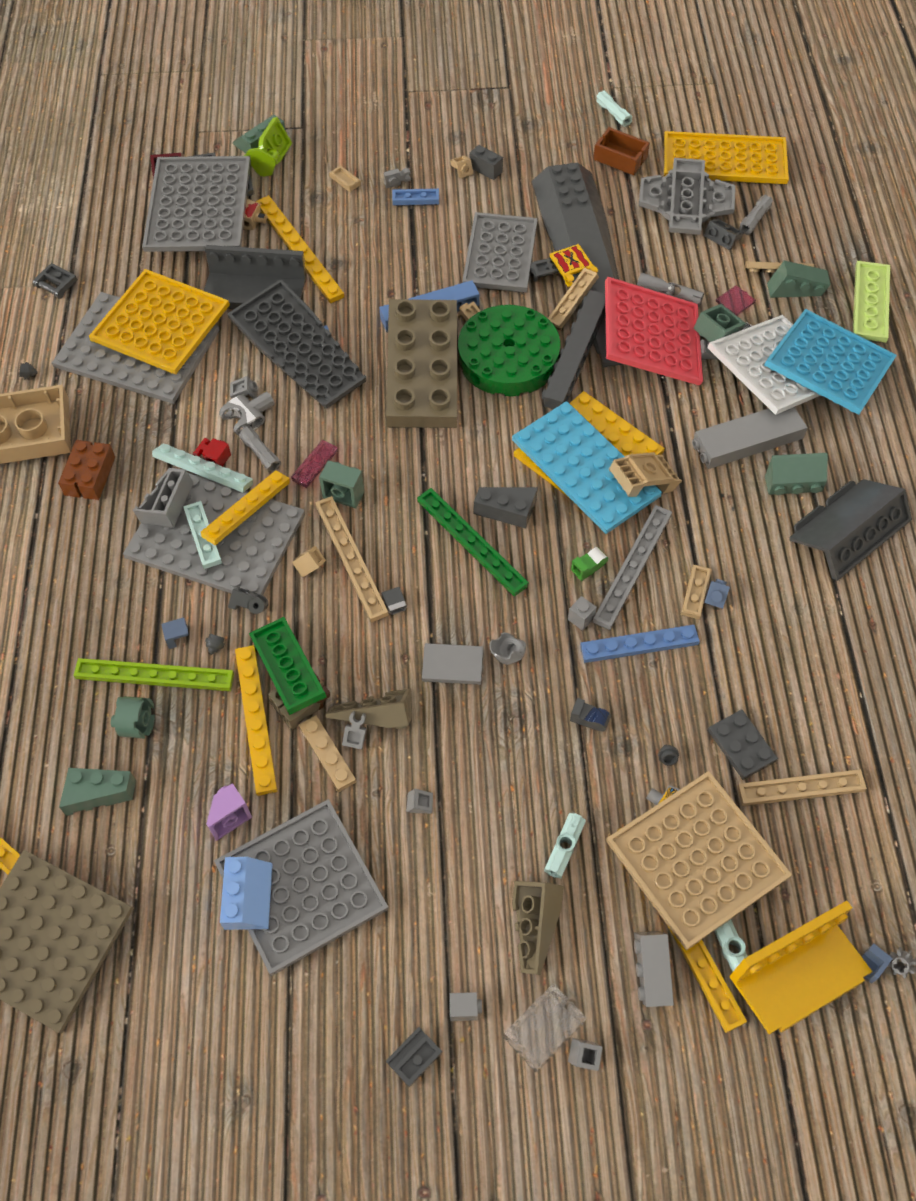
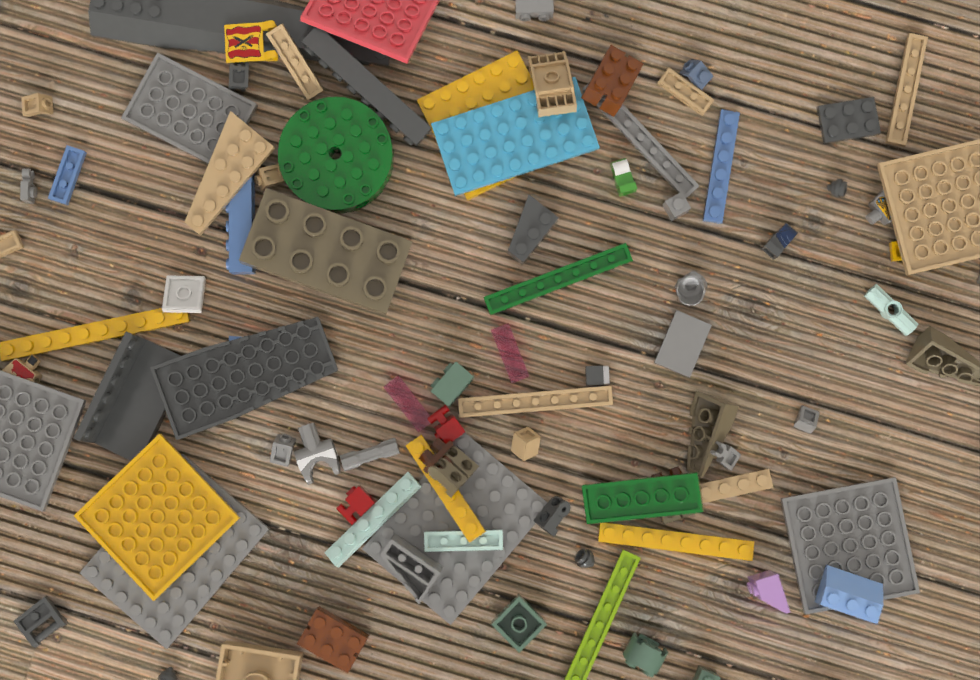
camera: 70 degrees left, 25 degrees up
(137, 602) = (519, 623): none -> sand green brick
(174, 630) = (562, 593): sand blue panel -> none
(265, 498) = (448, 466): none -> dark tan hips
(303, 496) = (448, 428): none -> red brick
(350, 289) = (184, 294): none -> white tile
(388, 524) = (509, 353): none -> clear pink plate
(469, 282) = (232, 164): none -> tan wing
(486, 162) = (45, 75): dark grey brick -> none
(672, 520) = (613, 79): none -> dark orange piece

